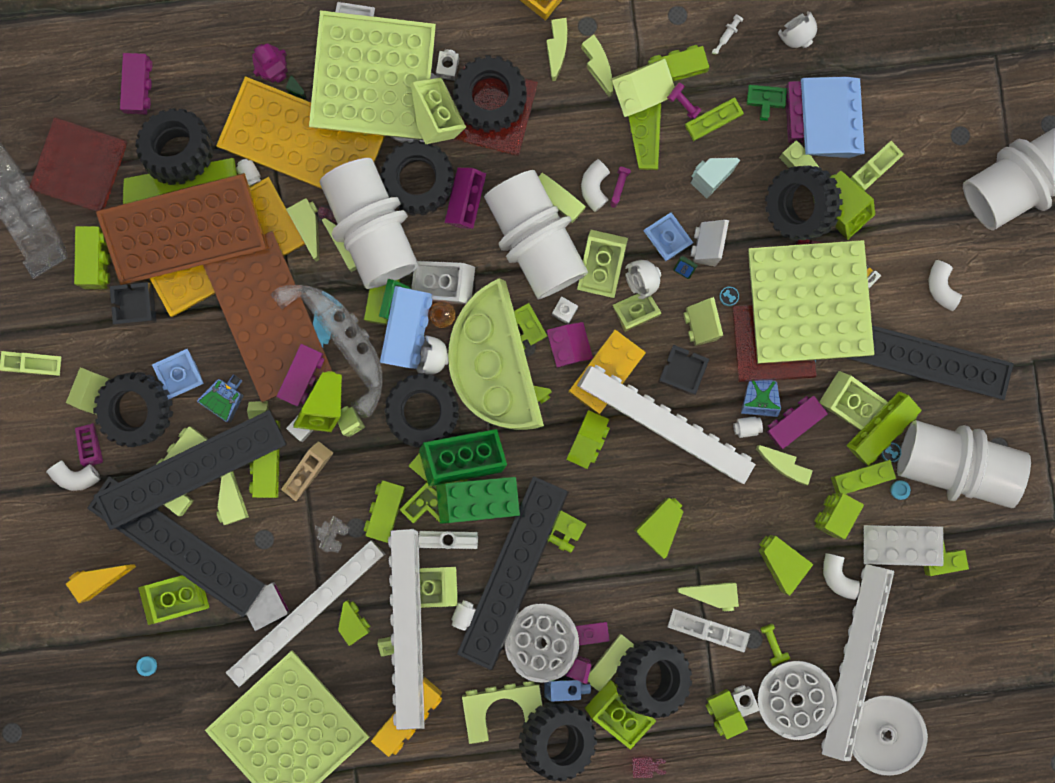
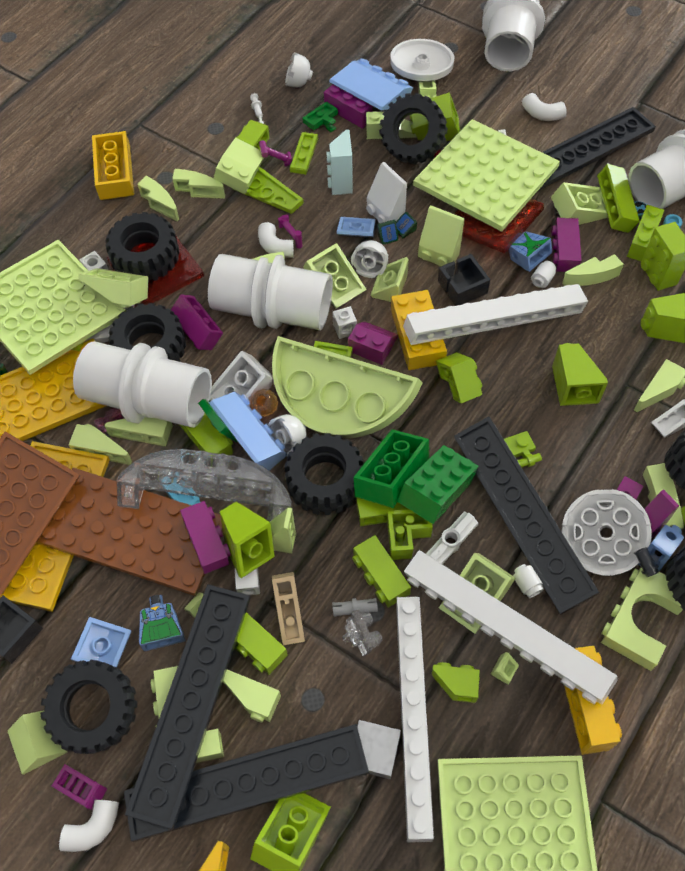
camera: 45 degrees left, 25 degrees down
(346, 514) = (346, 608): none -> light grey pin
(535, 691) = (646, 562): none -> black pin
(705, 273) = (406, 225): none -> slope
(910, 130) = (422, 59): none -> white dish

